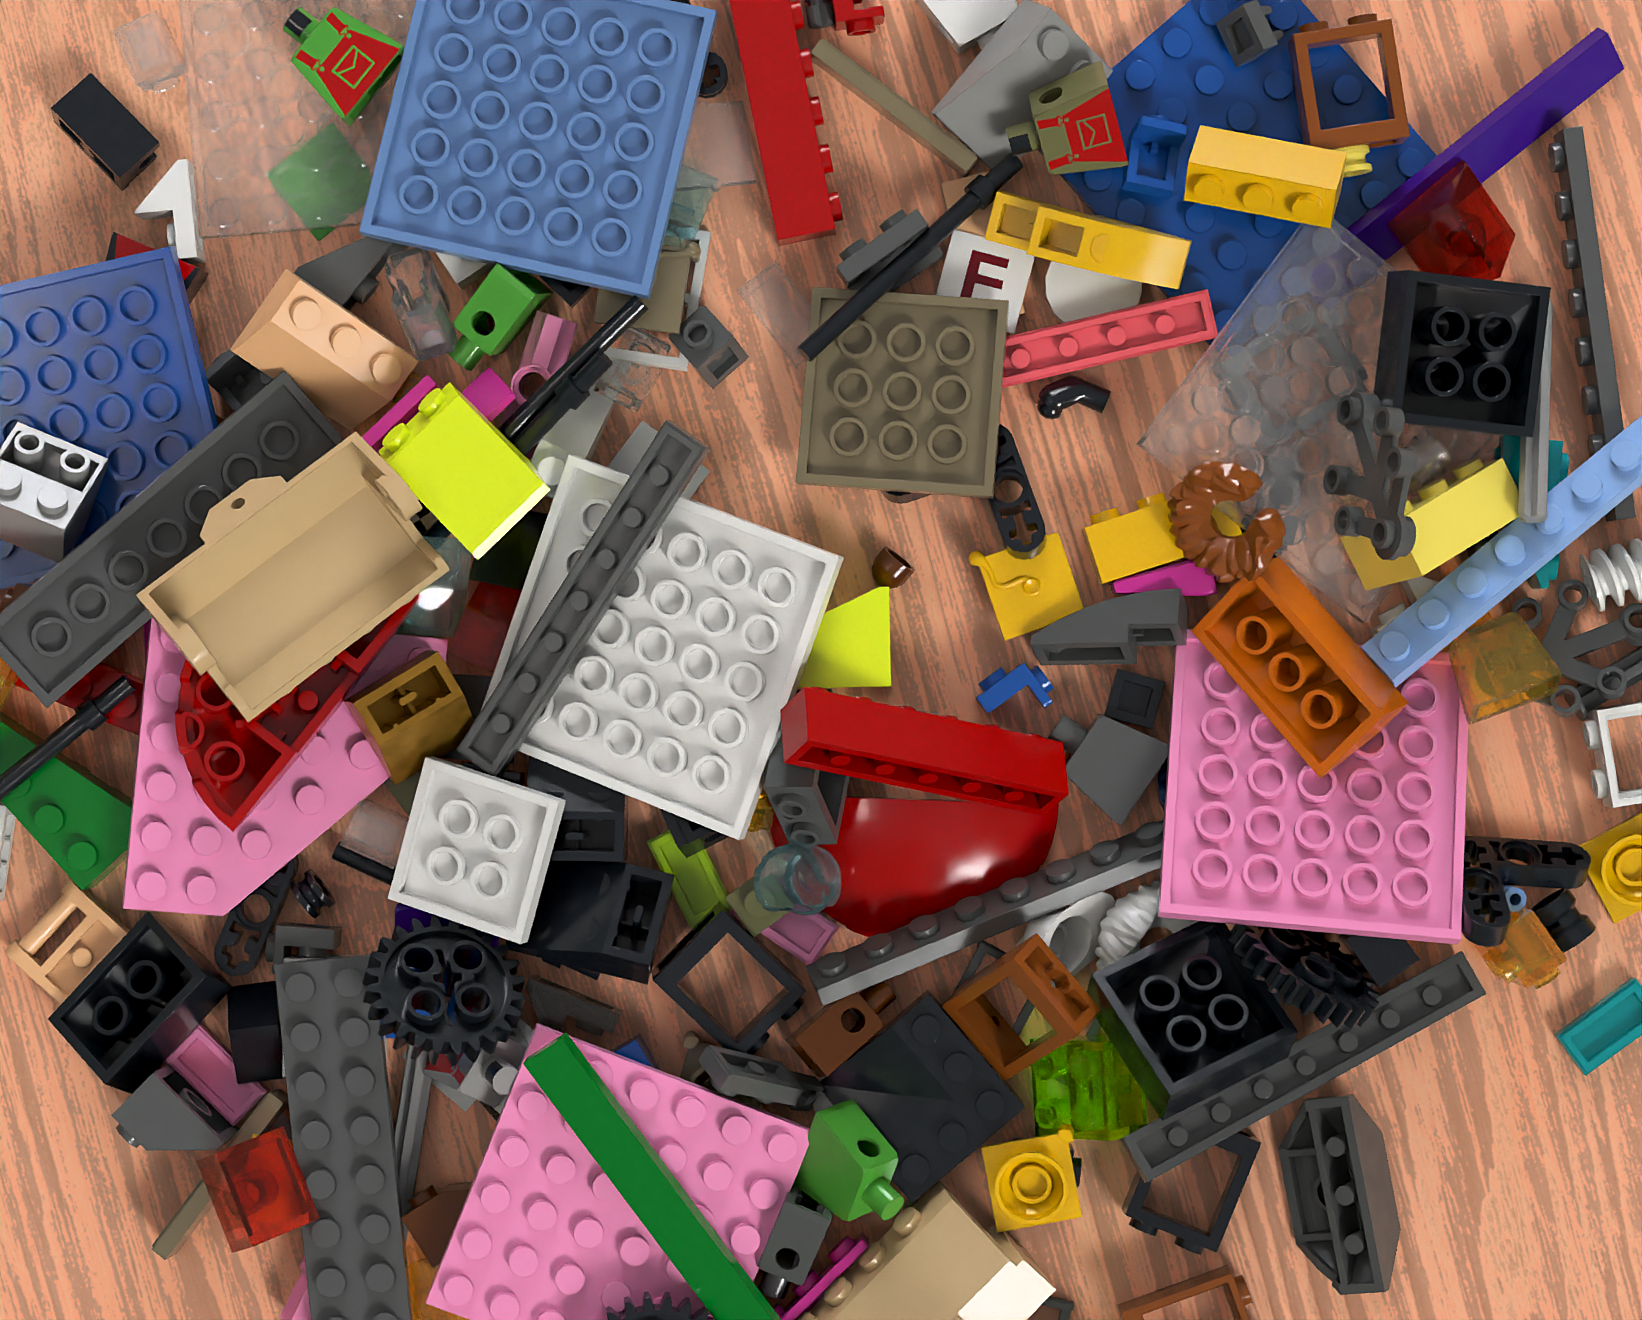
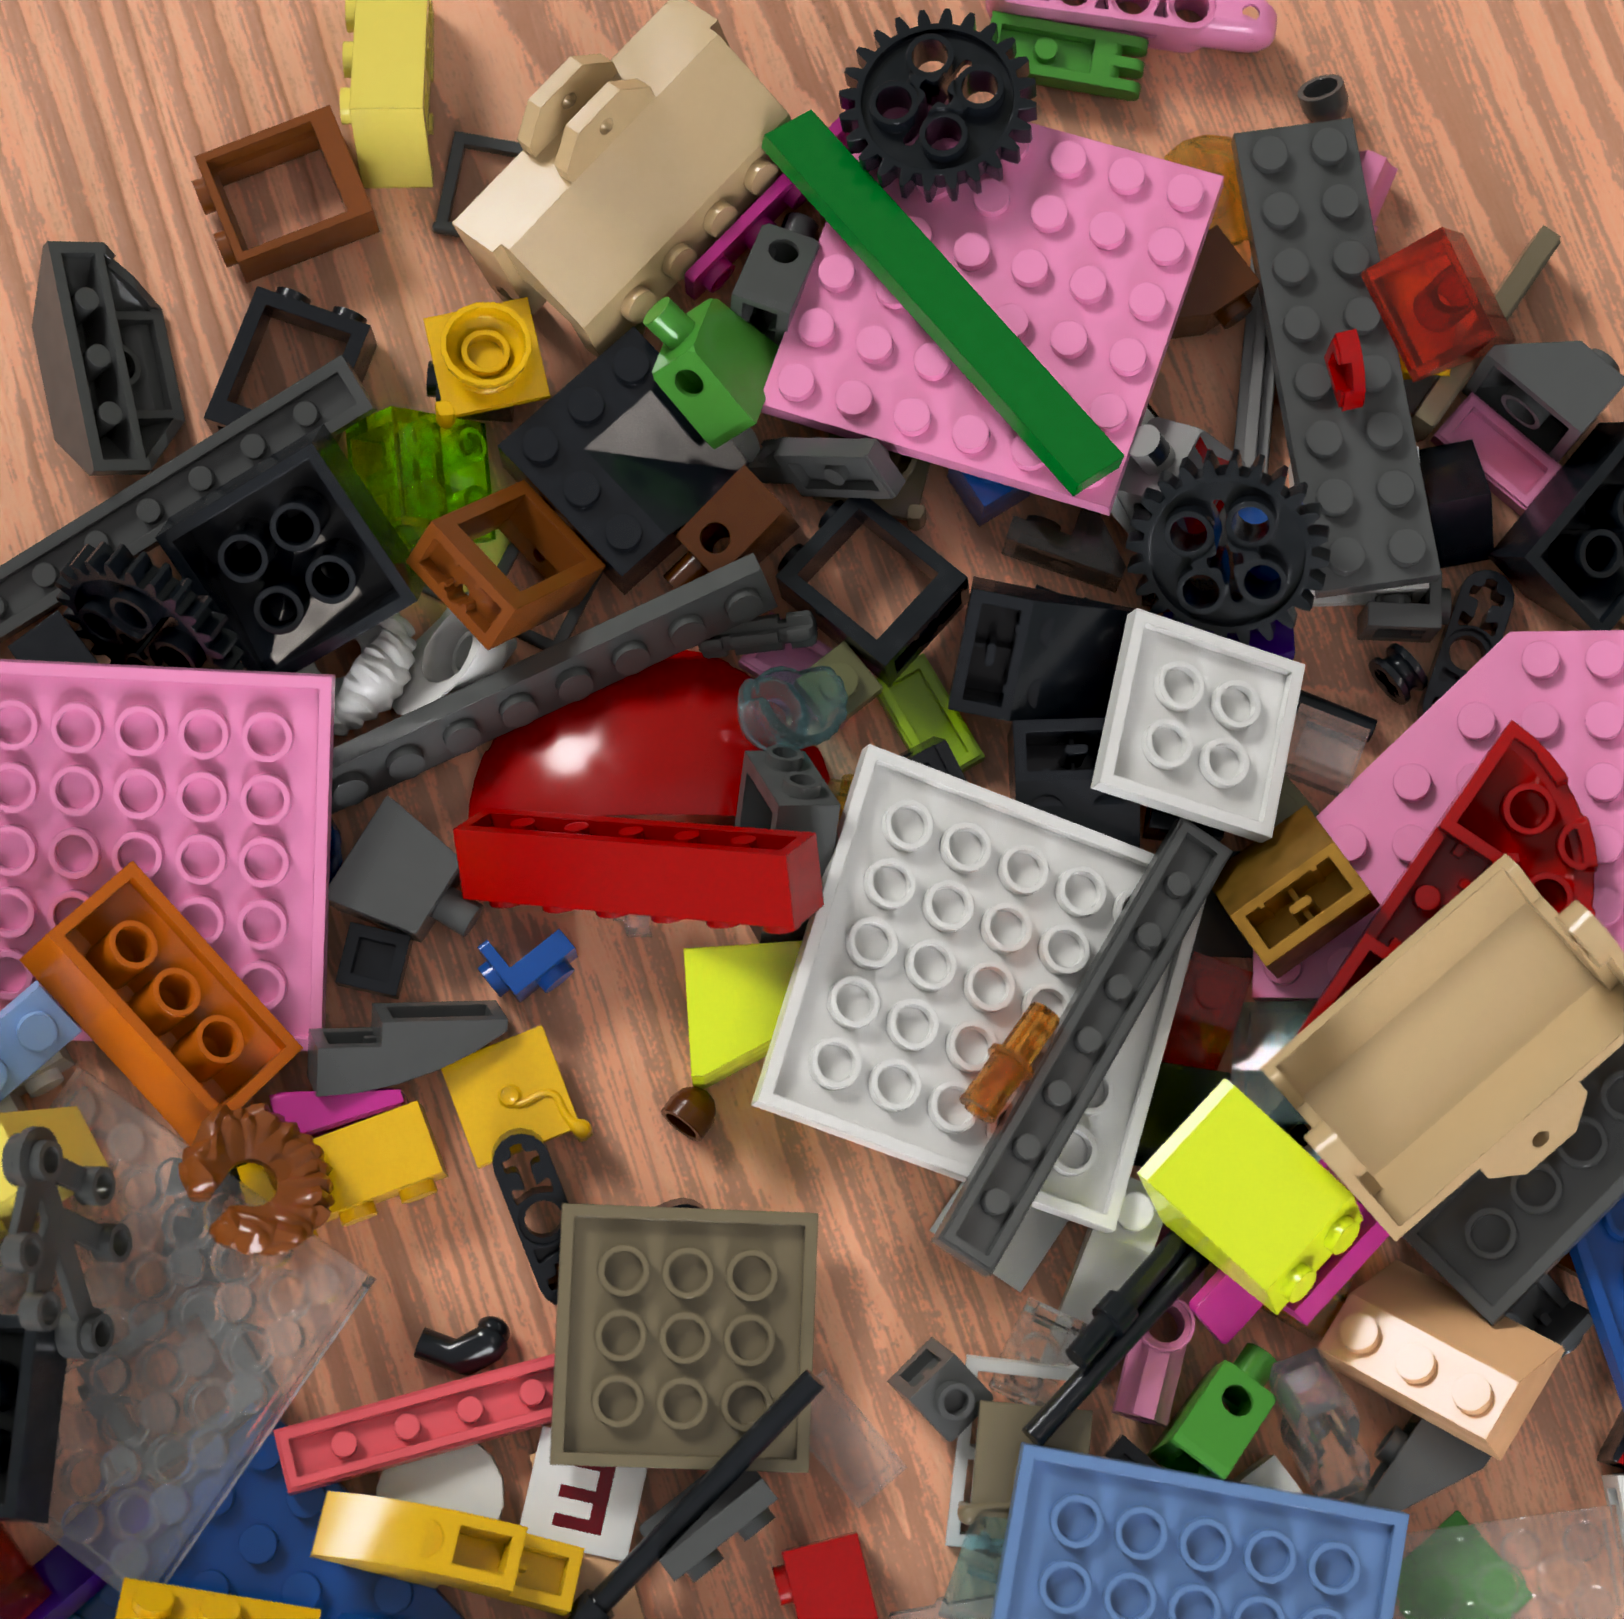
camera: 175 degrees right, 10 degrees down
(338, 1133) = (1346, 369): none -> red tile
(642, 582) = (1009, 1063): none -> clear orange axle
(815, 944) = (764, 635): none -> dark grey axle

